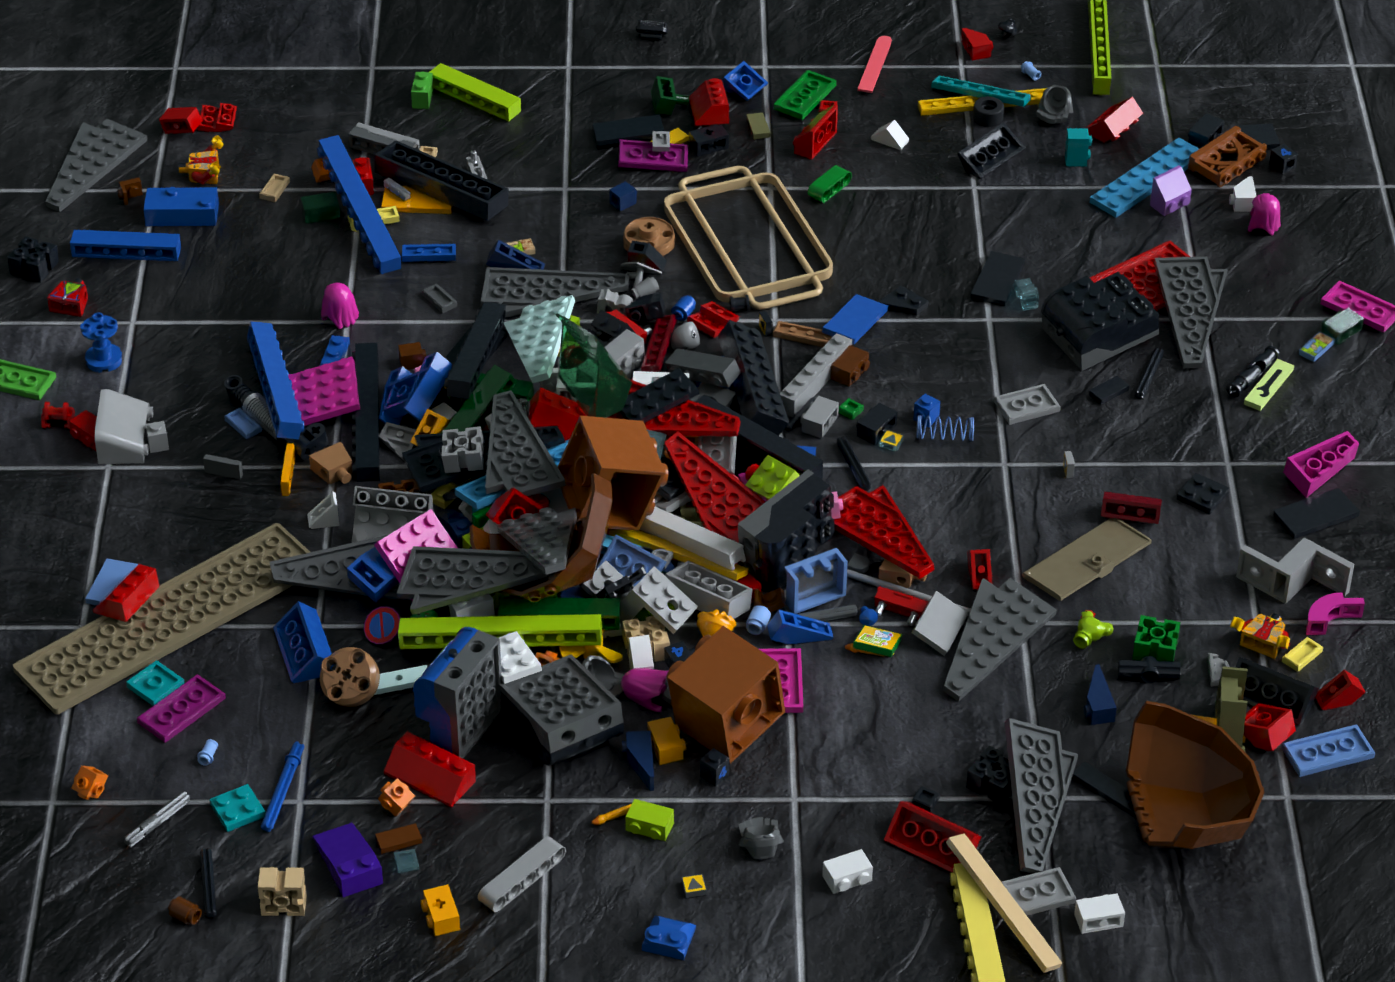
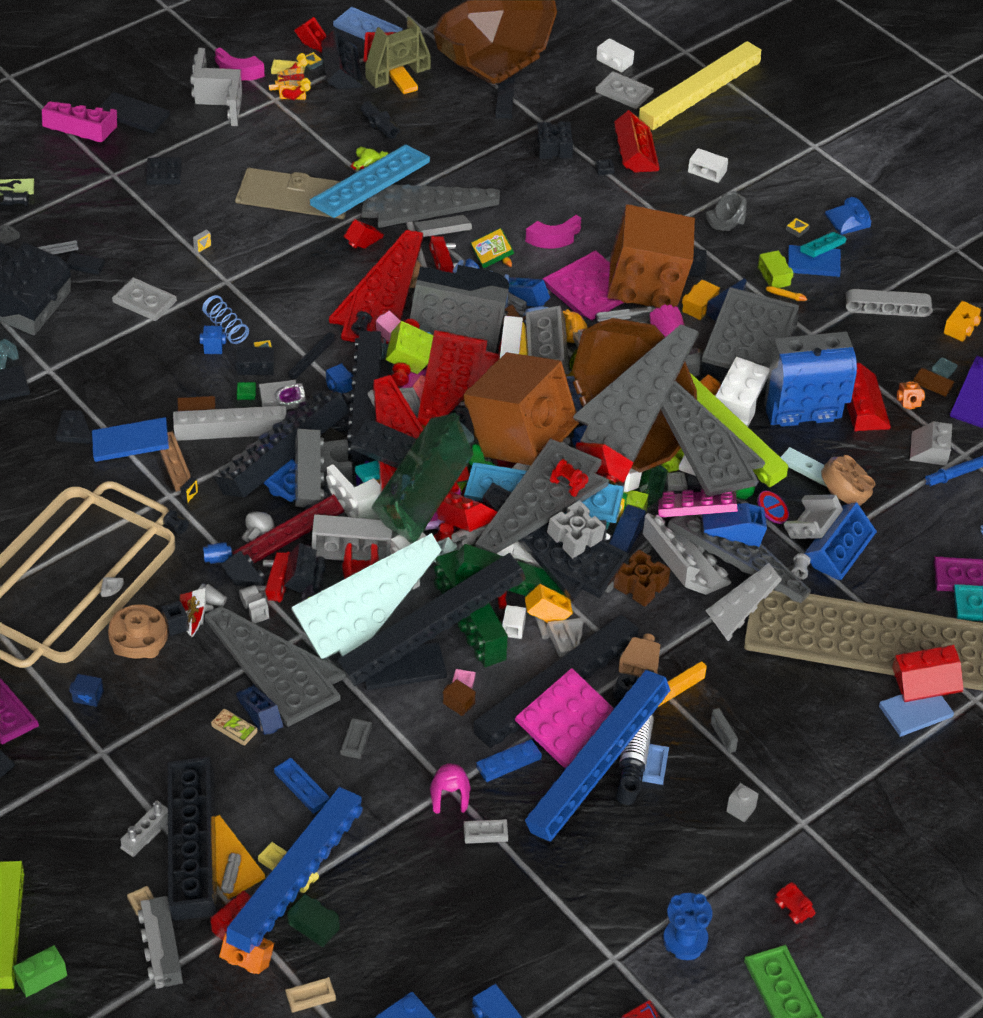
camera: 130 degrees left, 5 degrees up
(83, 428) = (786, 861): red brick -> none
(121, 428) = (759, 833): light grey windscreen -> none
(291, 313) = (486, 831): none -> light grey plate
(307, 599) = (801, 563): none -> light grey bush
(312, 536) = (740, 602): none -> light grey wing
(325, 513) = (700, 623): white slope -> none
(329, 777) = (931, 443): none -> light grey slope
(337, 630) = (816, 519): none -> light grey panel
(413, 392) = (528, 638): blue wedge -> none
(508, 457) = (576, 477): none -> red piece
(636, 865) = (824, 264): none -> blue tile
(646, 879) = (823, 244): none -> teal tile
(705, 240) = (111, 586): none -> light grey tile
(712, 318) = (209, 530): red slope -> none
(799, 405) = (290, 394): none -> rock
(850, 493) = (367, 319): none -> black bush
(856, 688) = (553, 236): none -> dark pink arch
(1004, 903) = (658, 86): tan tile -> none
(1039, 787) = (550, 112): dark grey wing -> none
(1045, 600) = (369, 181): none -> dark azure plate
(1100, 704) = (431, 129): dark blue slope -> none
(1131, 507) = (222, 188): dark red brick -> none
(1156, 639) = (353, 121): green brick -> none
(1215, 667) = (342, 96): light grey tile -> none
(1300, 673) = (313, 60): none -> clear light blue tile

